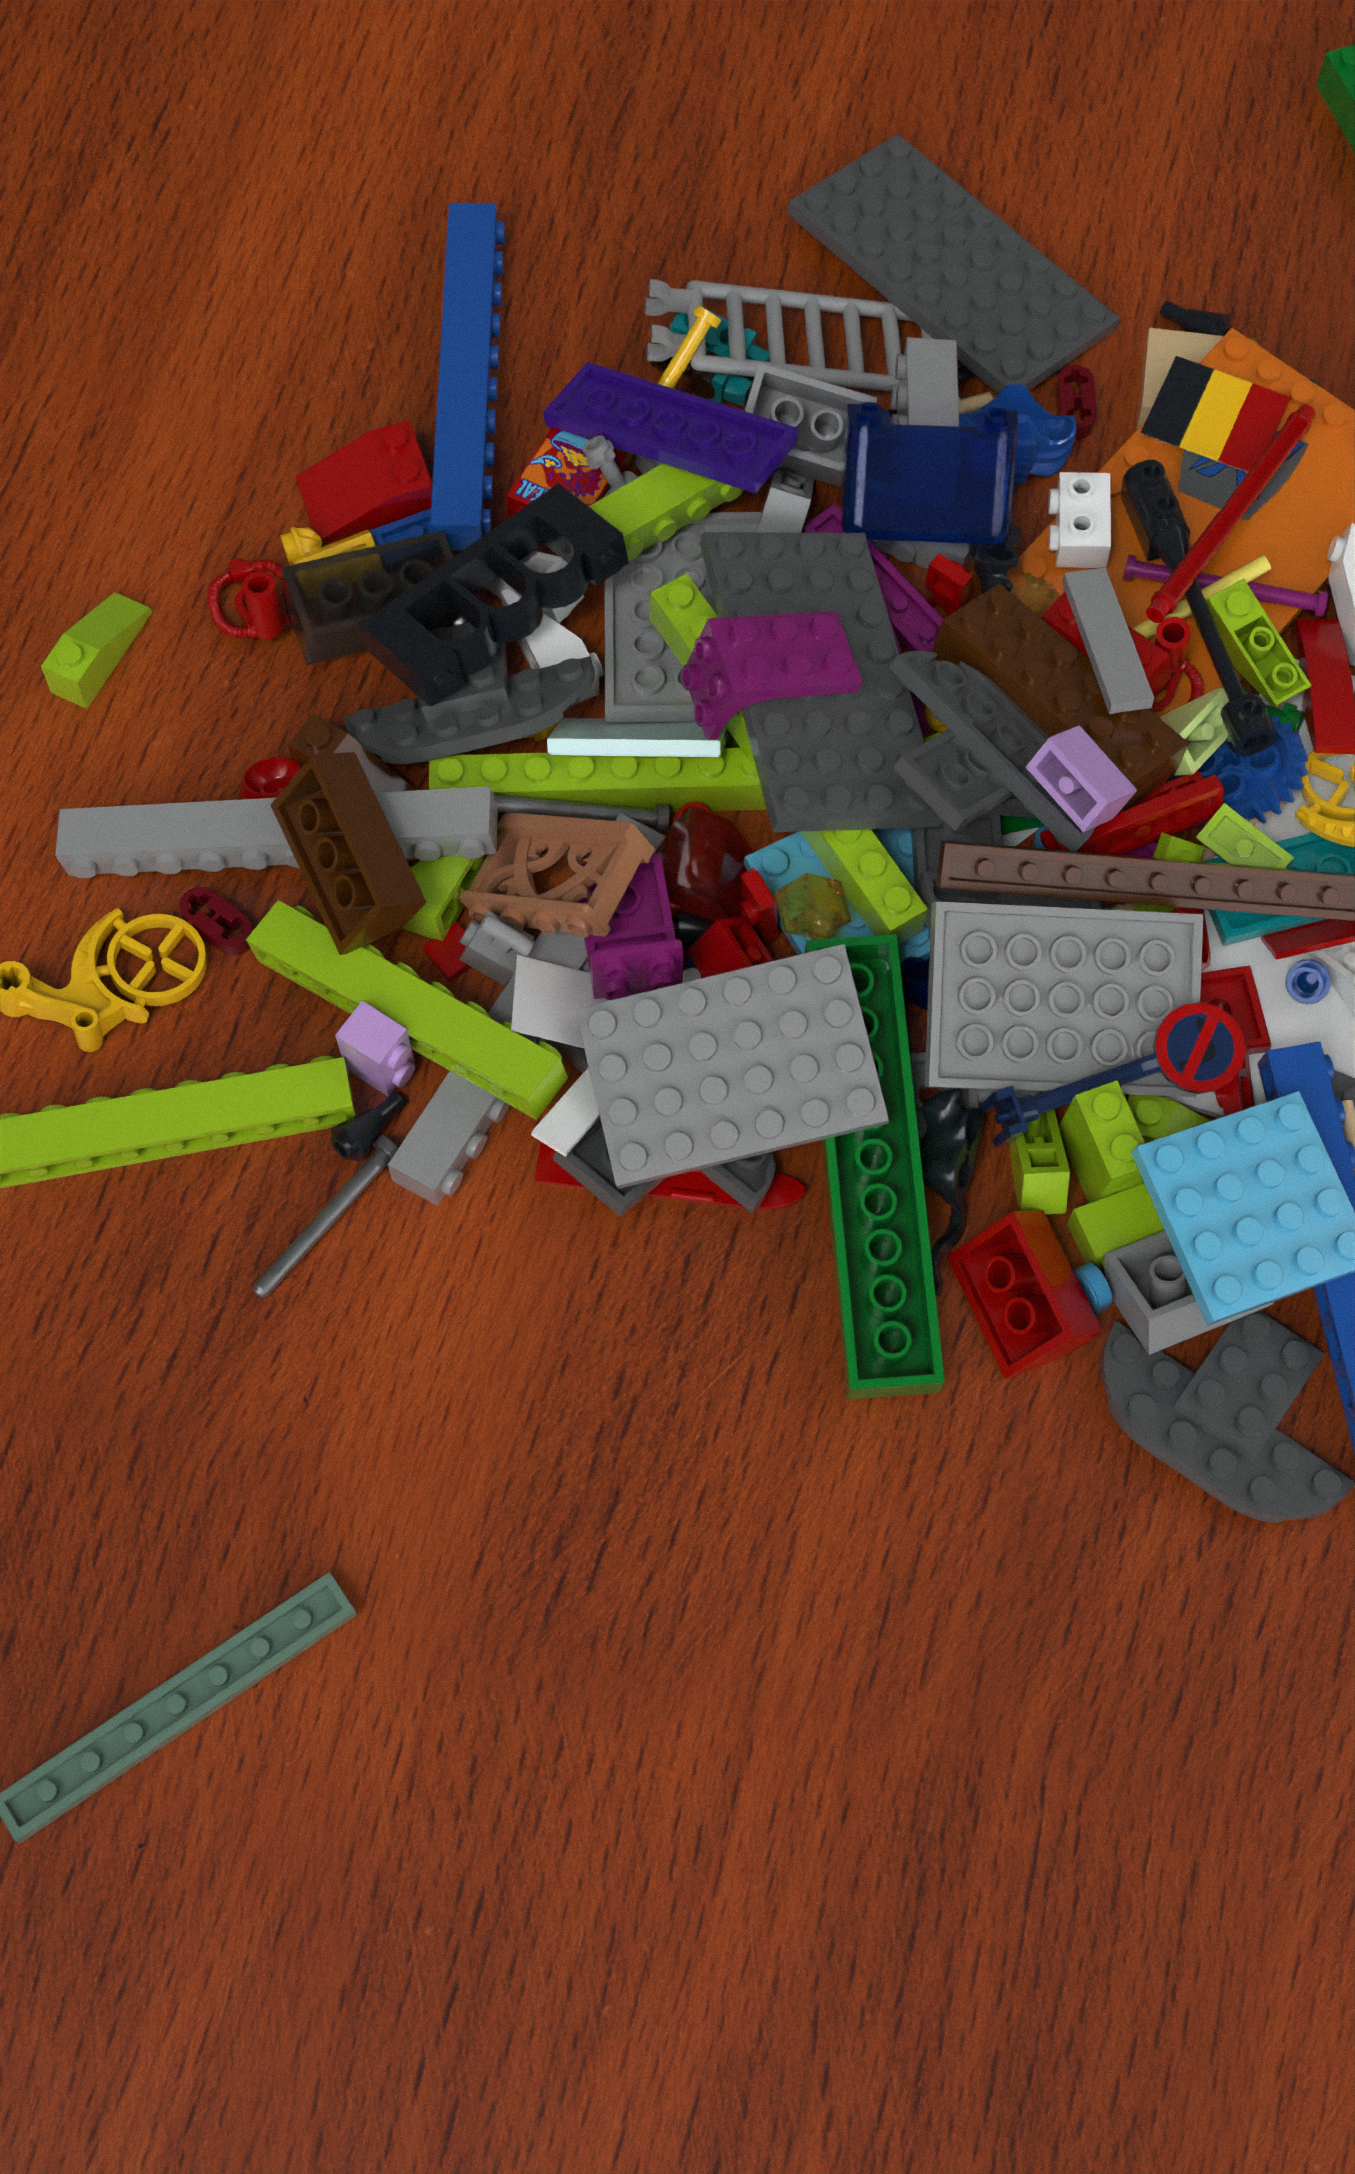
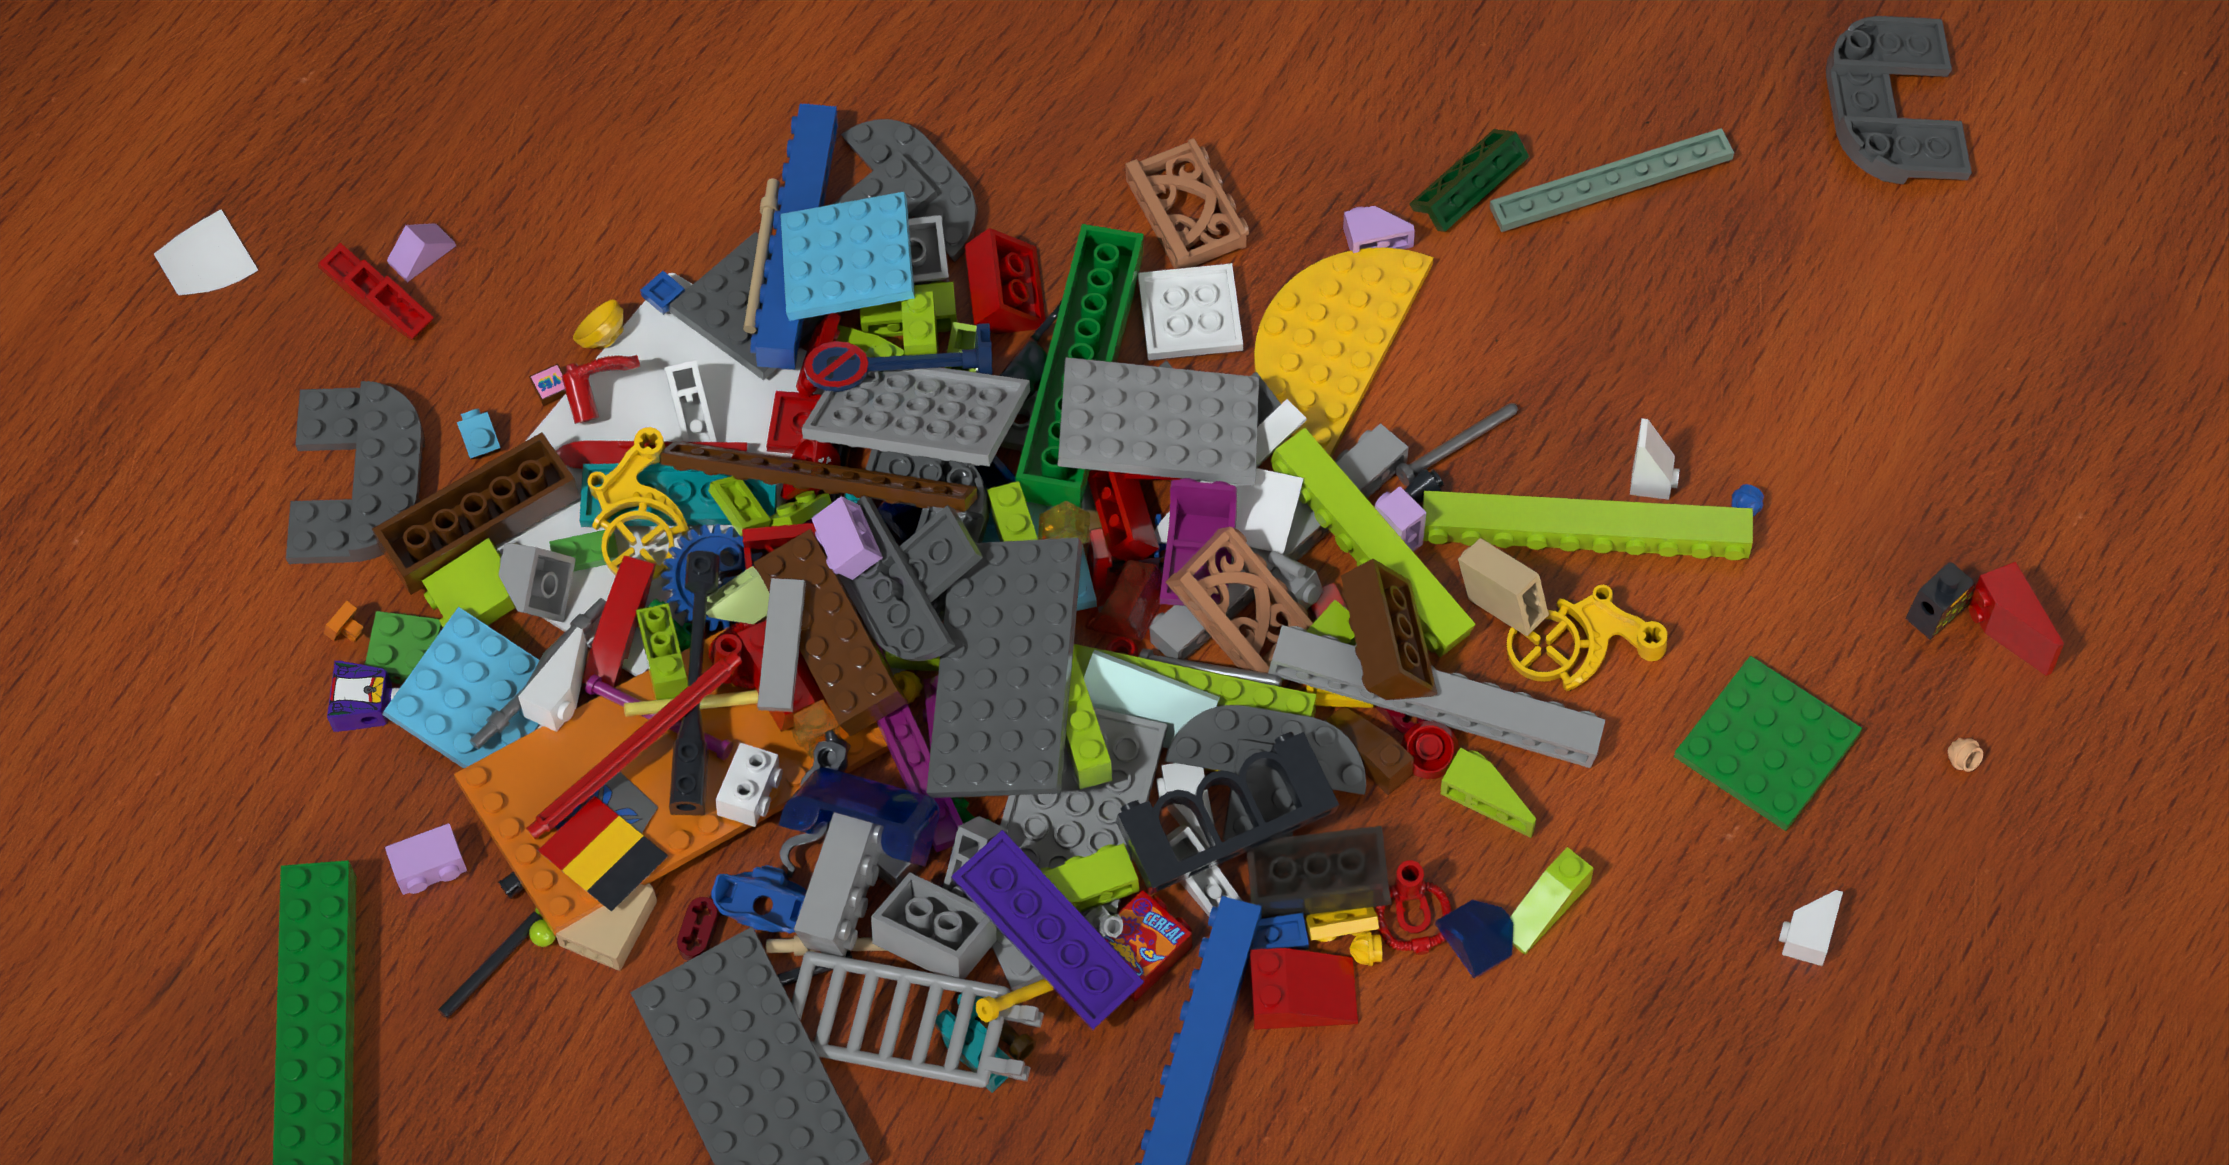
camera: 160 degrees left, 5 degrees down
(43, 1215) = (1653, 465): none -> white slope
(175, 590) = (1478, 935): none -> clear blue slope
(200, 753) = (1481, 787): none -> lime slope
(217, 985) = (1503, 586): none -> tan brick
(222, 913) = (1499, 660): dark red beam -> none
(382, 1650) = (1471, 178): none -> dark green fence
(518, 1515) = (1376, 229): none -> lavender slope
(541, 1341) = (1333, 331): none -> yellow plate
(750, 1320) = (1190, 311): none -> white plate
(766, 659) = (1043, 661): magenta bracket -> none
(807, 1423) = (1175, 242): none -> nougat fence
(949, 584) = (867, 766): red plate -> none
(1095, 1287) = (960, 280): dark azure tile -> none
(1197, 320) = (563, 965): black cone -> none
(1293, 305) = (488, 966): none -> black bar
(1308, 981) = (732, 421): blue plate -> none

